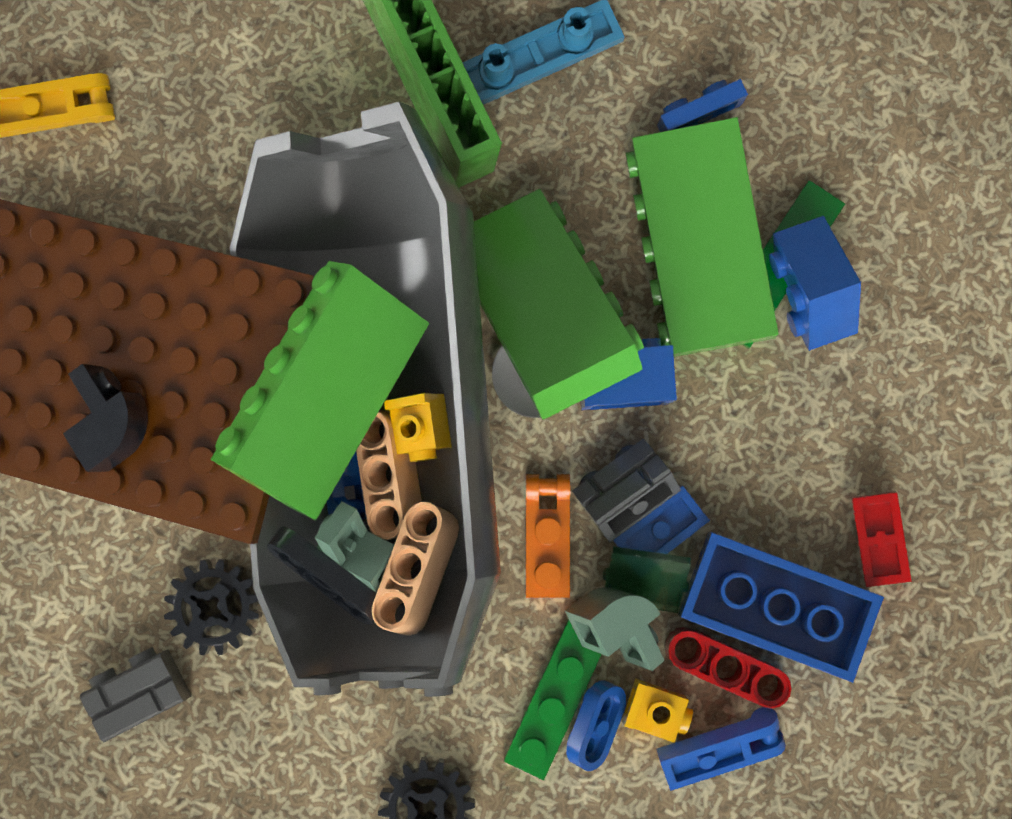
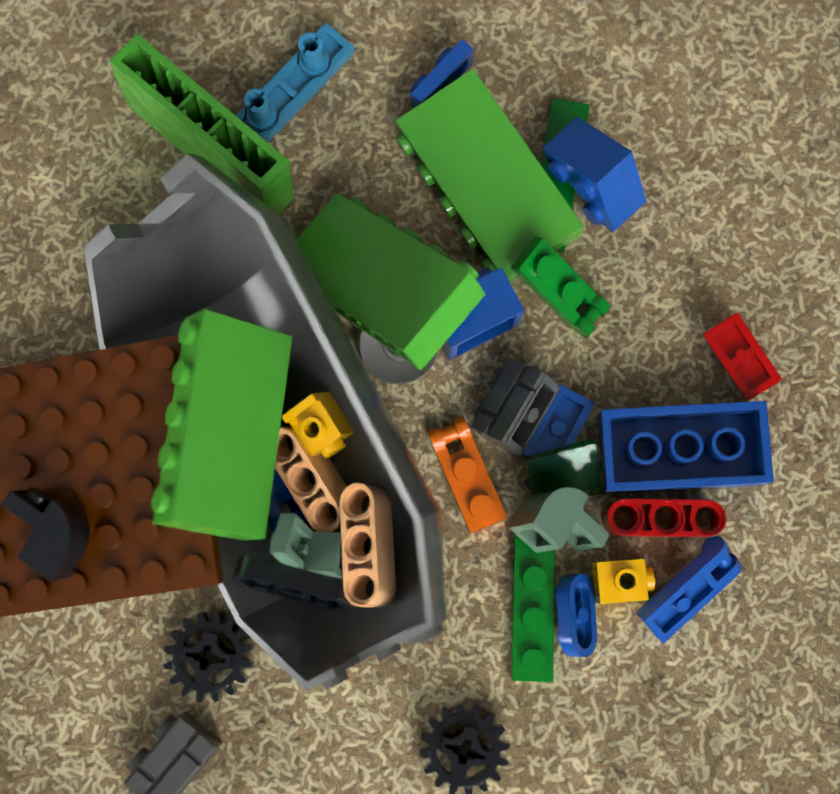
camera: 25 degrees left, 5 degrees down
(727, 385) = (560, 286): none -> green plate

